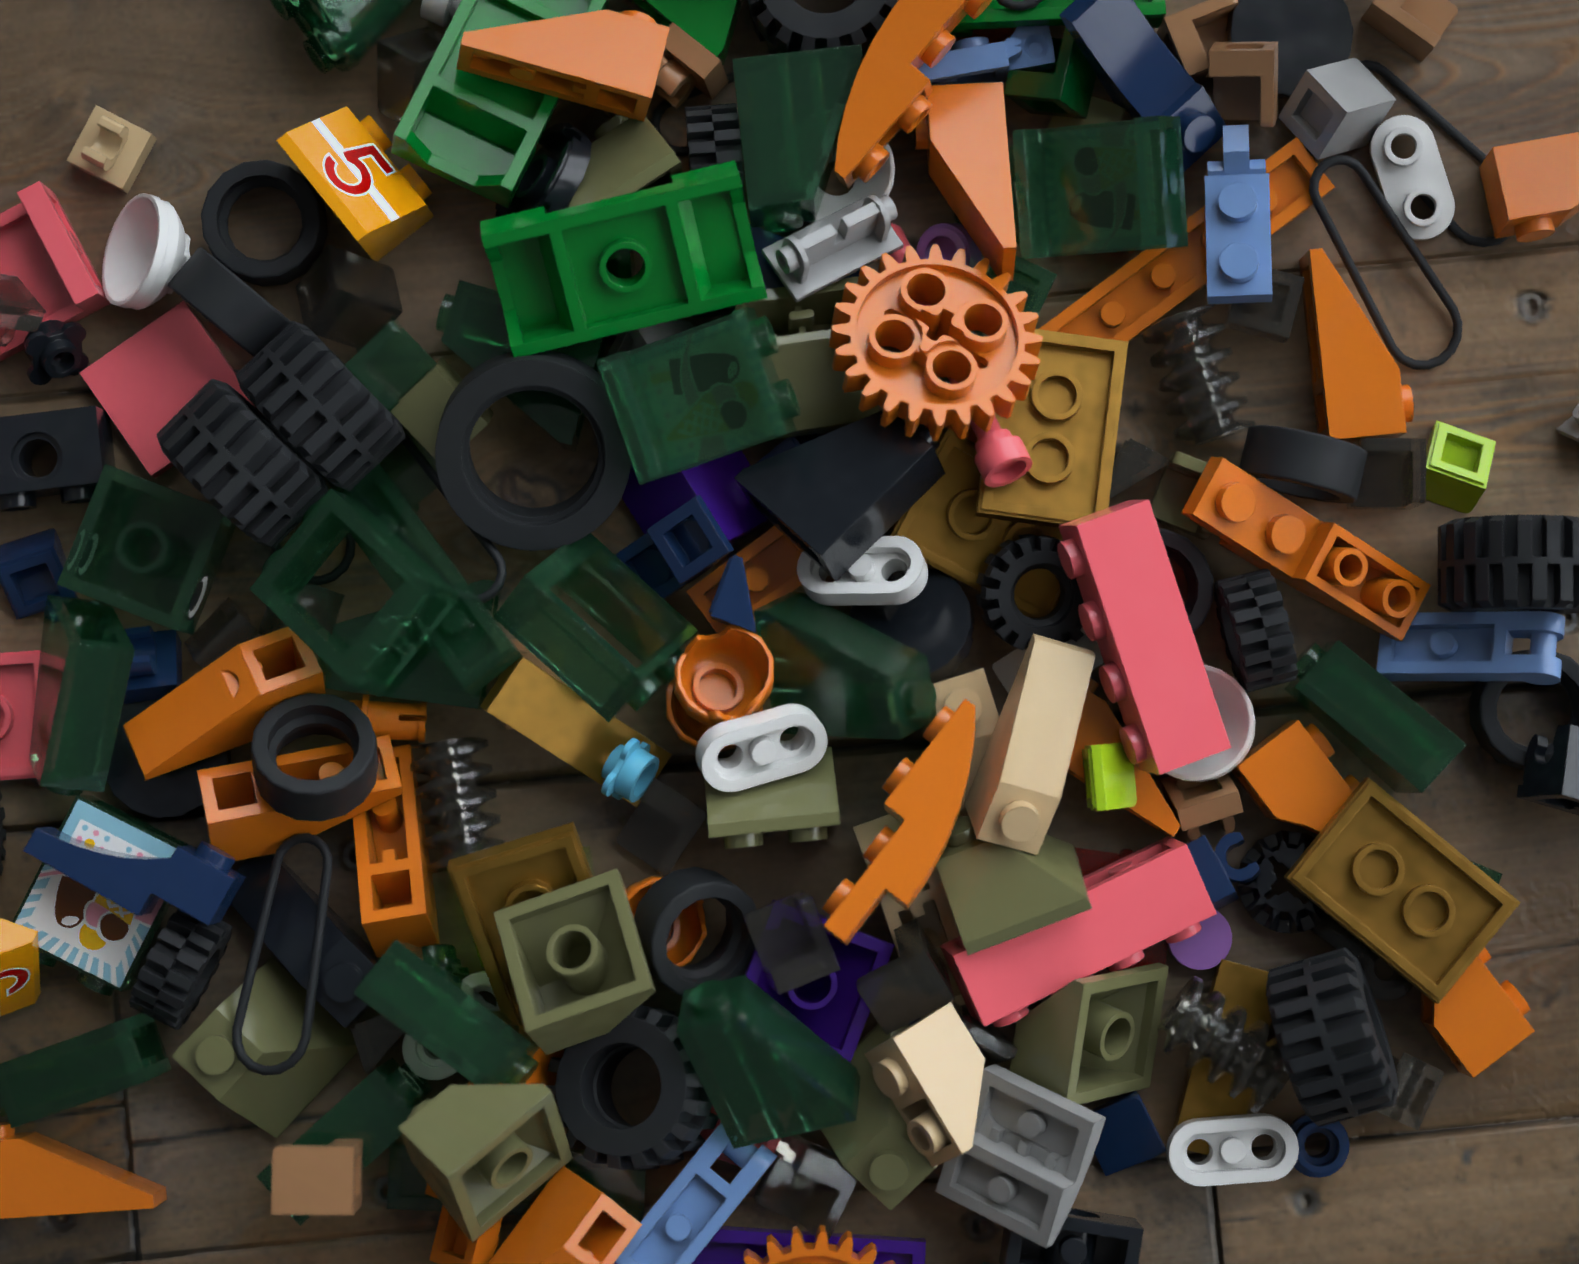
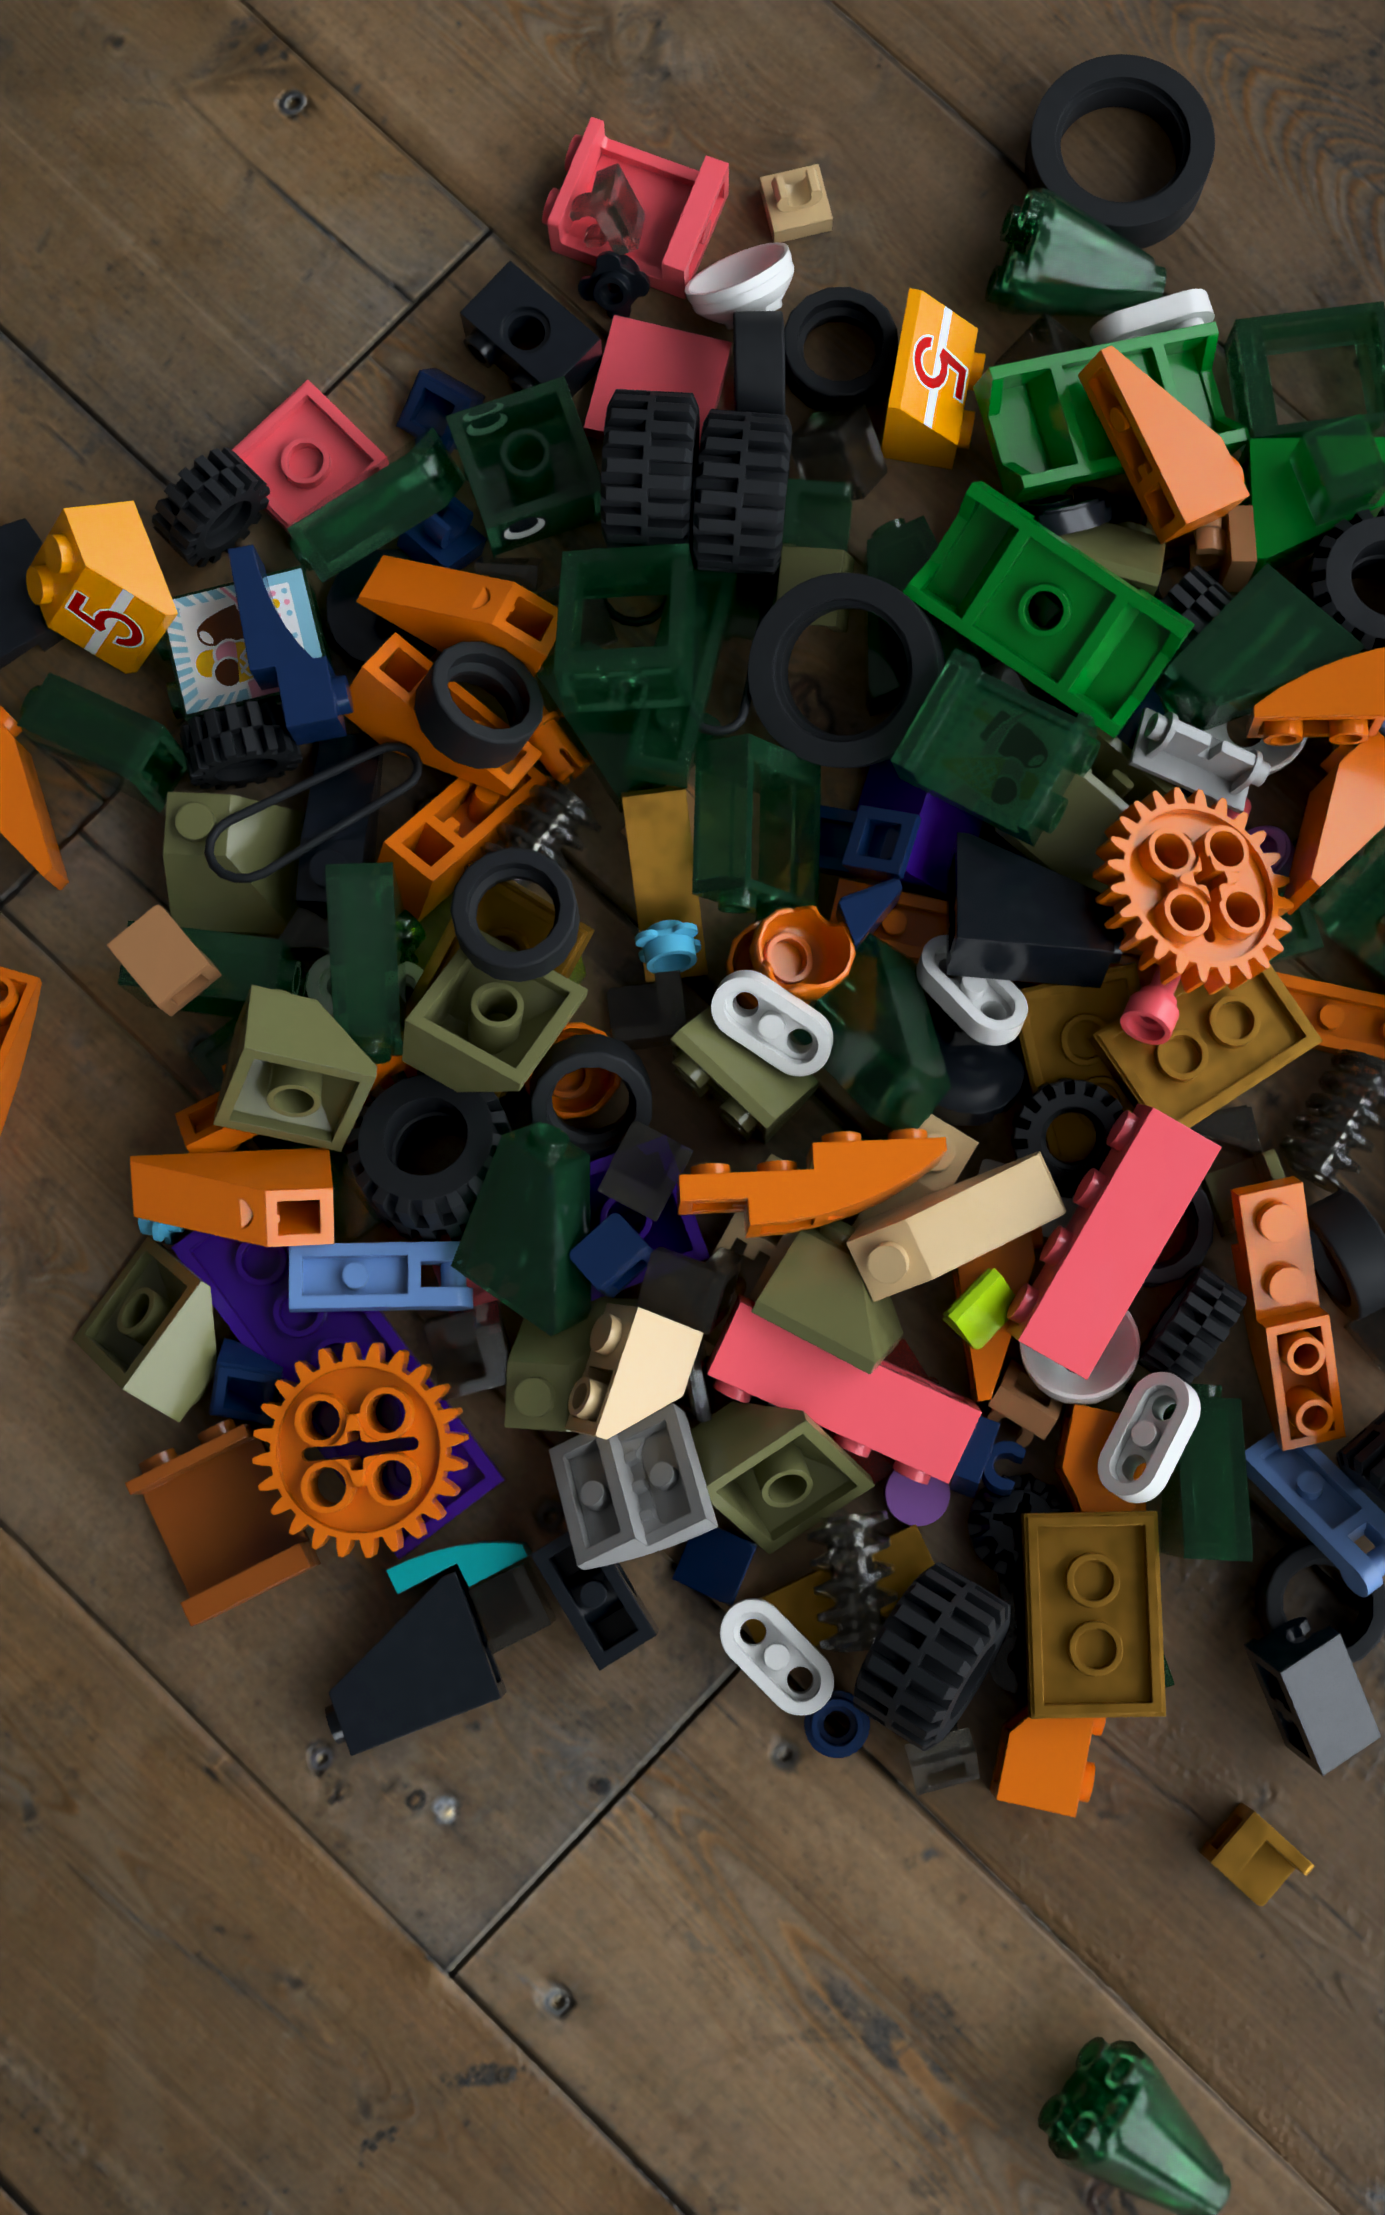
camera: 55 degrees right, 5 degrees down
(465, 871) = (503, 867): none -> black tyre
(833, 1022) = (612, 1255): none -> dark blue slope
(1307, 737) = (1145, 1437): none -> white plate

